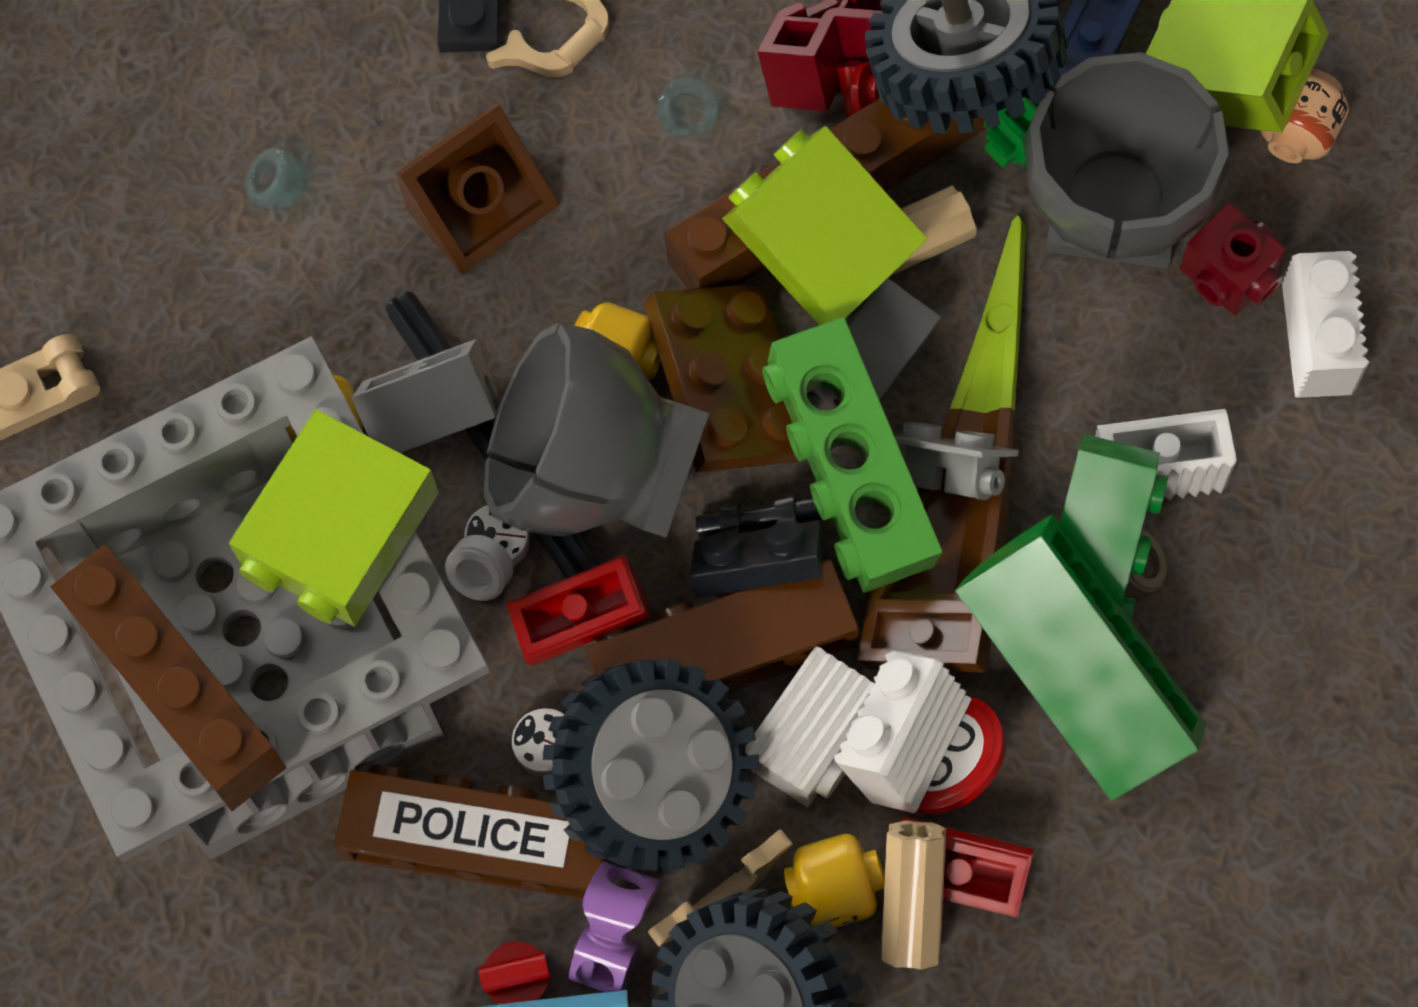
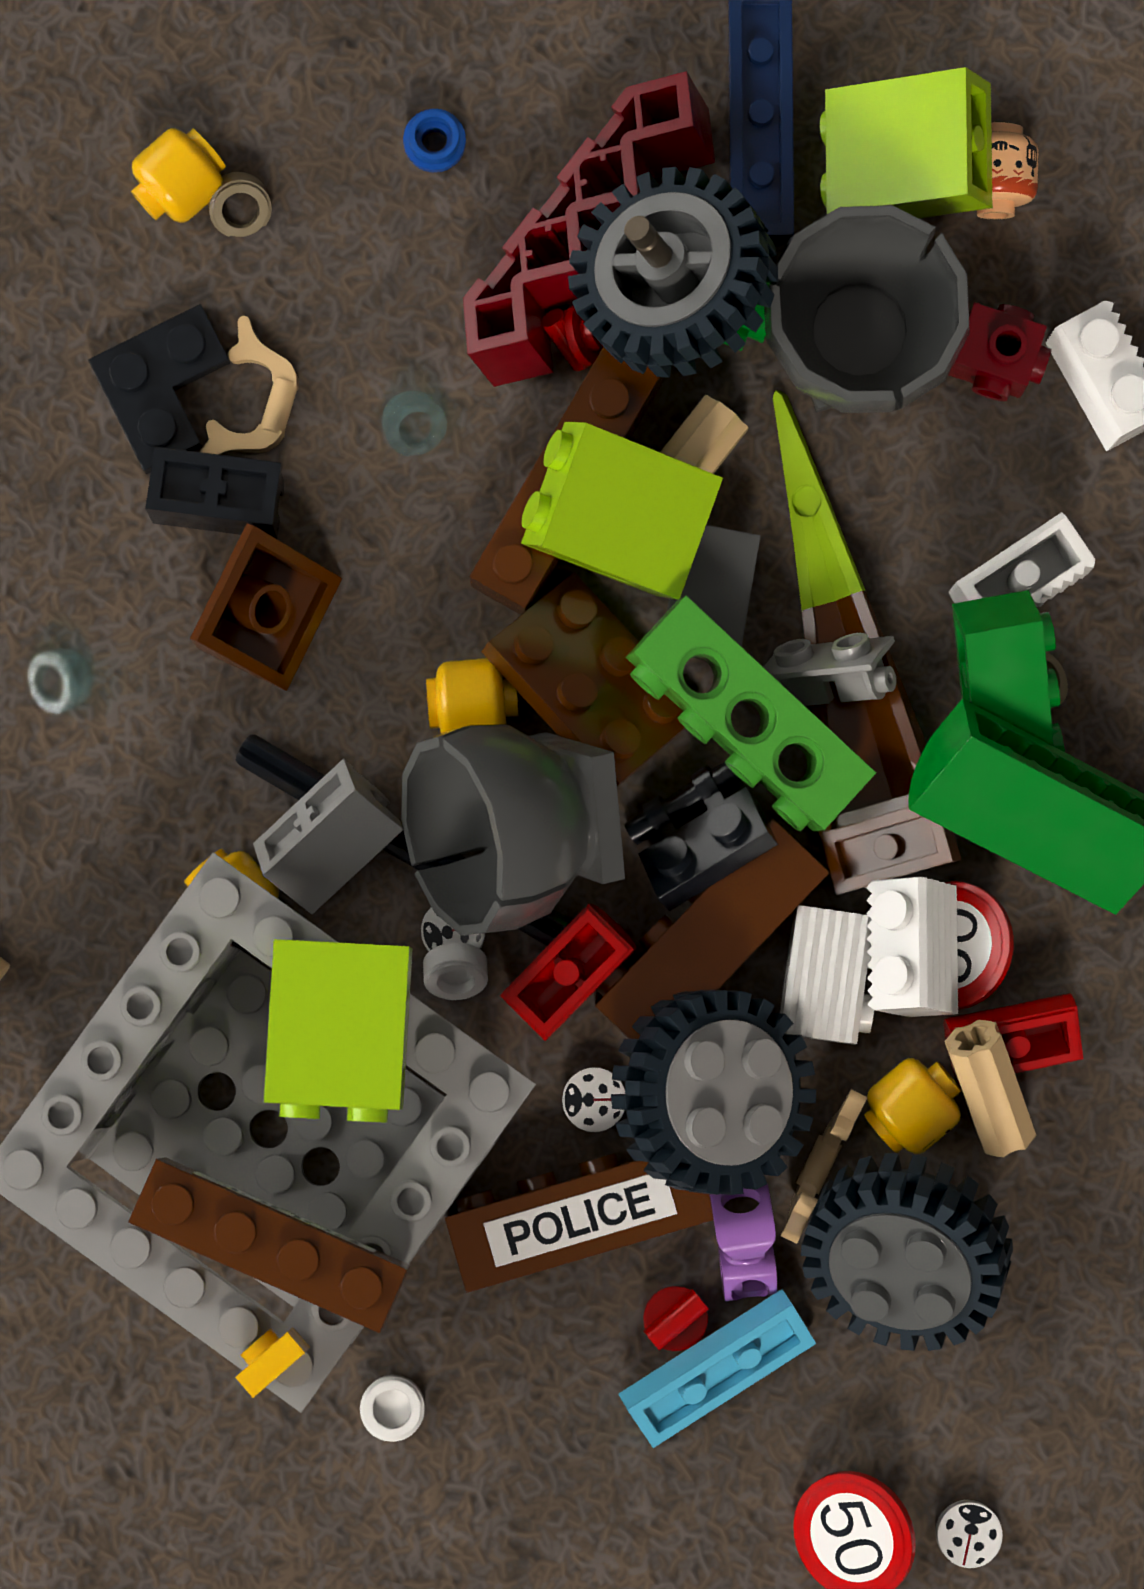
camera: 30 degrees left, 15 degrees up
(111, 782) = (269, 1358): none -> yellow plate
(216, 932) = (392, 1408): none -> white tile
(474, 72) = (214, 491): none -> black hinge

